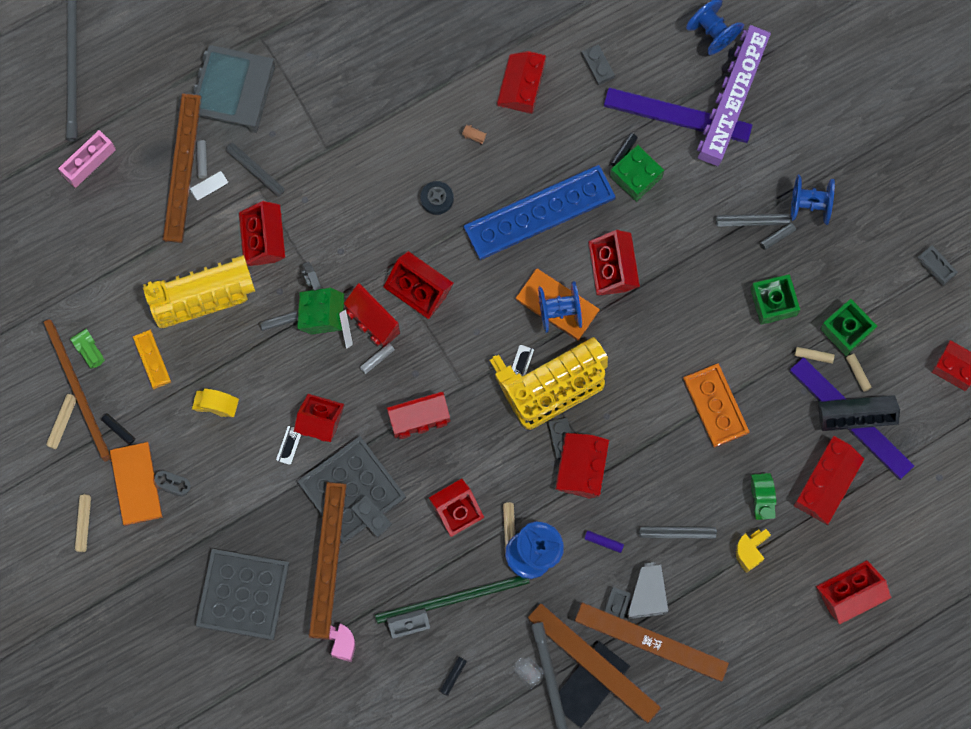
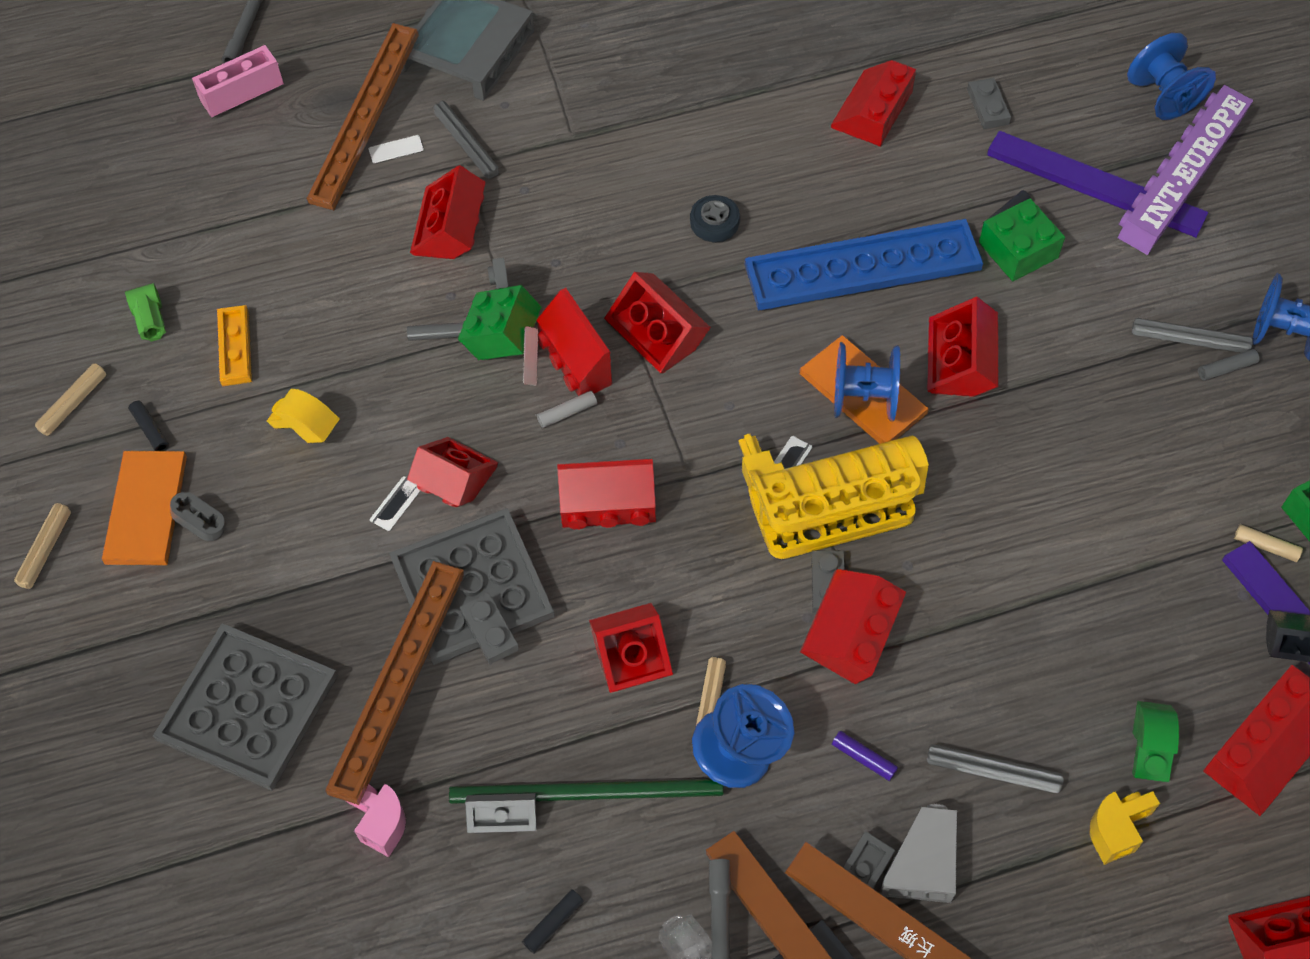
camera: 15 degrees right, 15 degrees down
(78, 392) = (109, 364): dark orange tile -> none
(199, 293) = (325, 263): yellow piece -> none
(201, 159) = (396, 115): light grey piece -> none
(474, 134) = (788, 151): nougat pin -> none
(716, 405) = (1092, 586): orange tile -> none
(775, 299) = (1214, 445): green brick -> none

